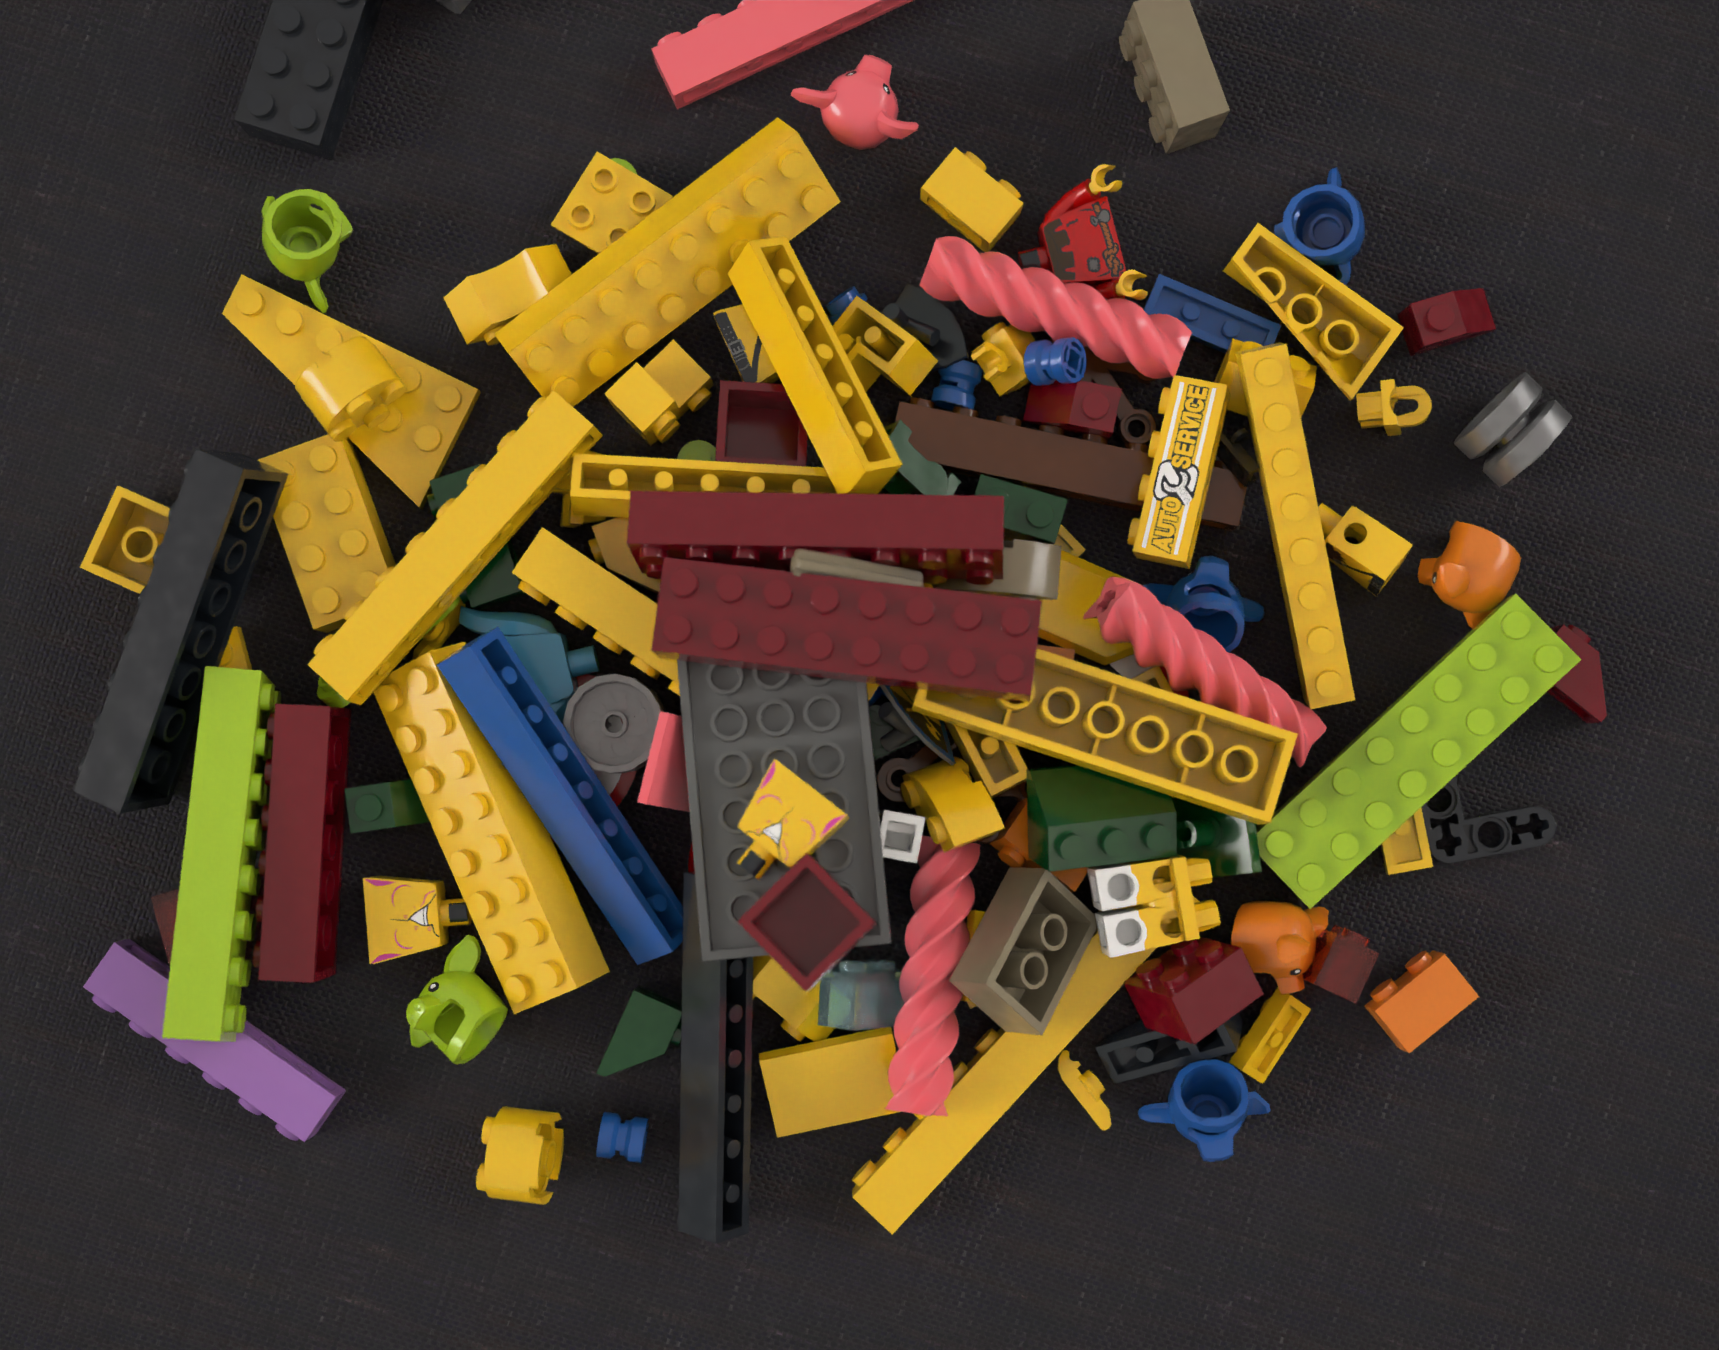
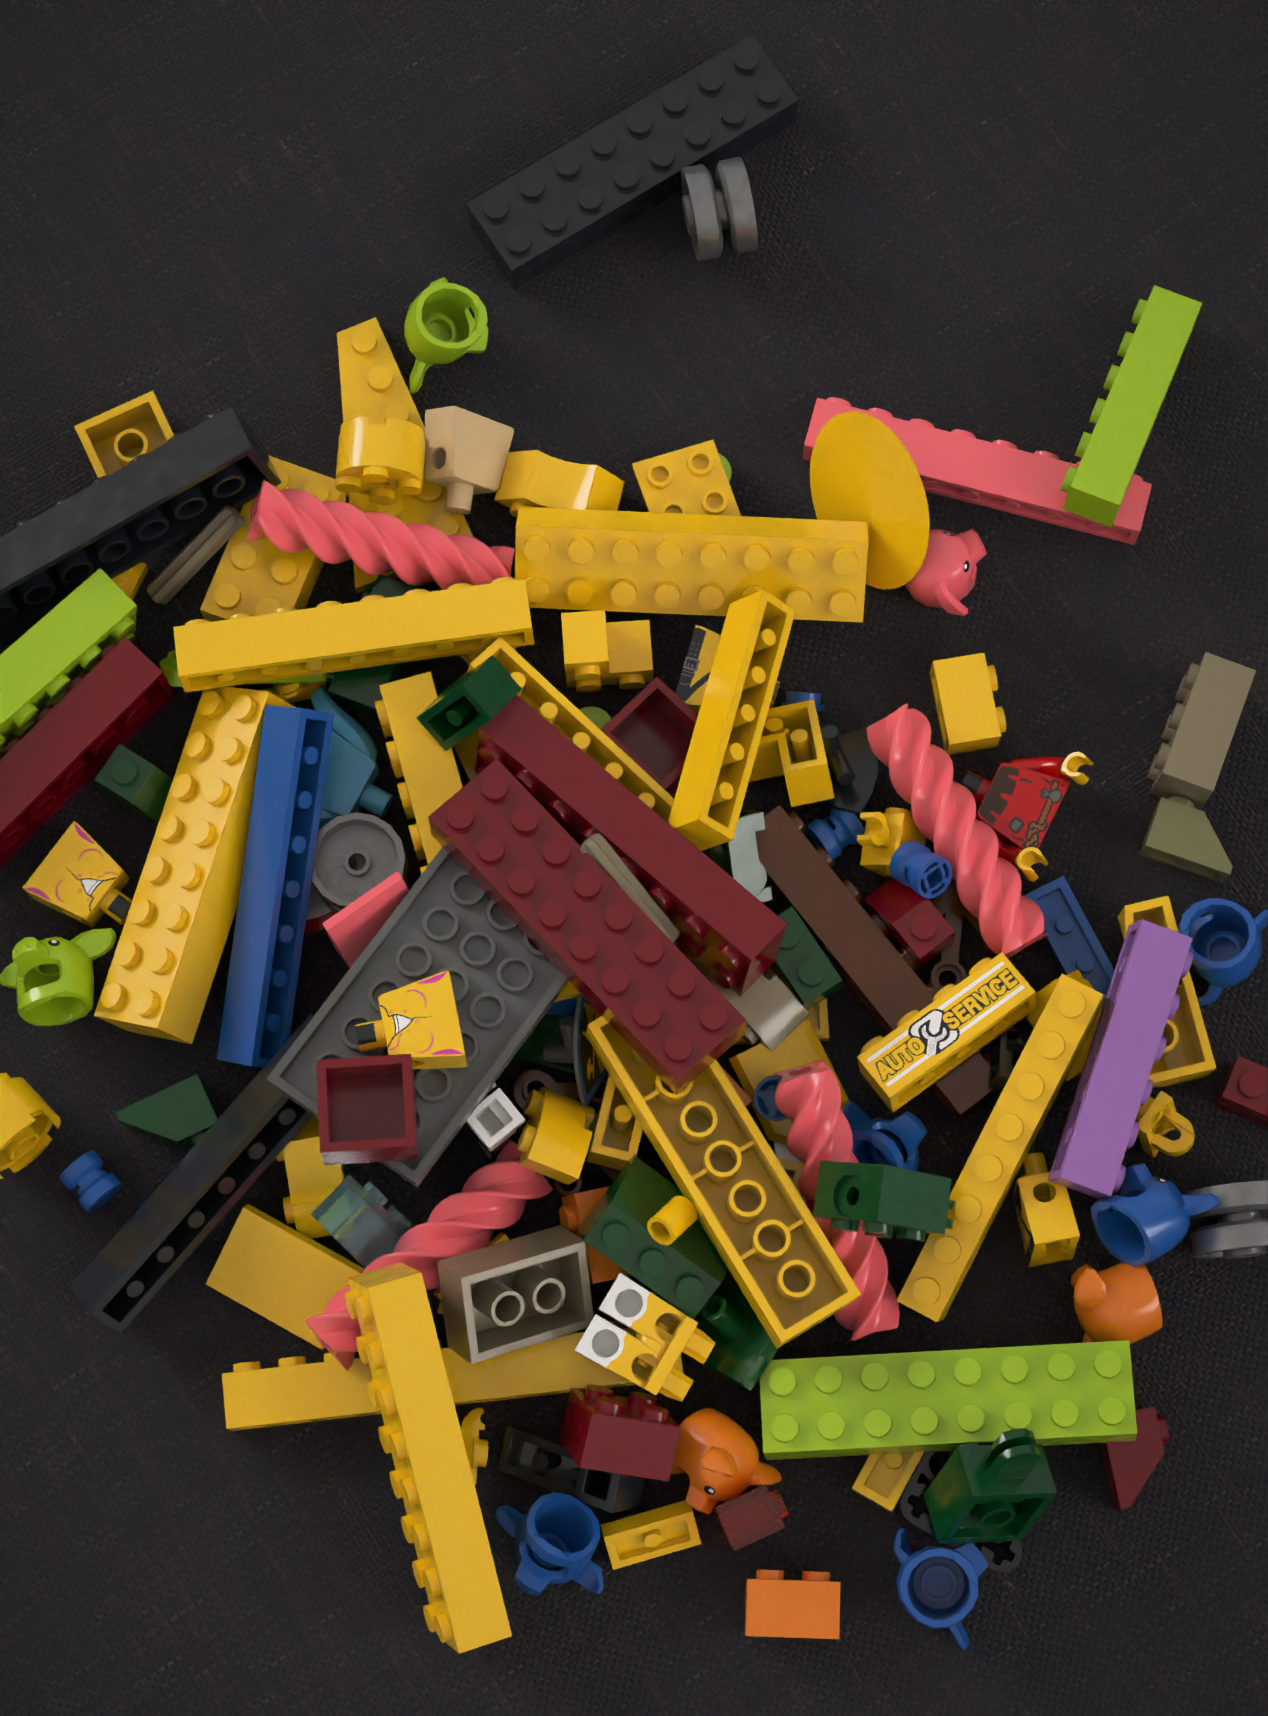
camera: 45 degrees right, 10 degrees down
(270, 587) = (195, 555): none -> dark tan axle
(404, 458) = (373, 540): none -> coral piece
(412, 327) = (464, 454): none -> tan torso
(599, 528) = (469, 703): none -> dark green brick
(749, 76) = (870, 477): none -> yellow sticker
(1069, 1130) = (427, 1457): none -> yellow brick
(1091, 640) = (765, 1101): none -> blue wheel
(1104, 798) = (672, 1220): none -> yellow hinge
(1226, 167) = (1185, 840): none -> olive slope
(1255, 649) = (883, 1200): none -> dark green brick
(1333, 381) = (1121, 1060): none -> medium lavender brick
(1448, 485) = (1146, 1216): none -> blue piece
(1501, 793) = (991, 1490): none -> dark green brick
(1516, 891) = (939, 1584): none -> blue piece

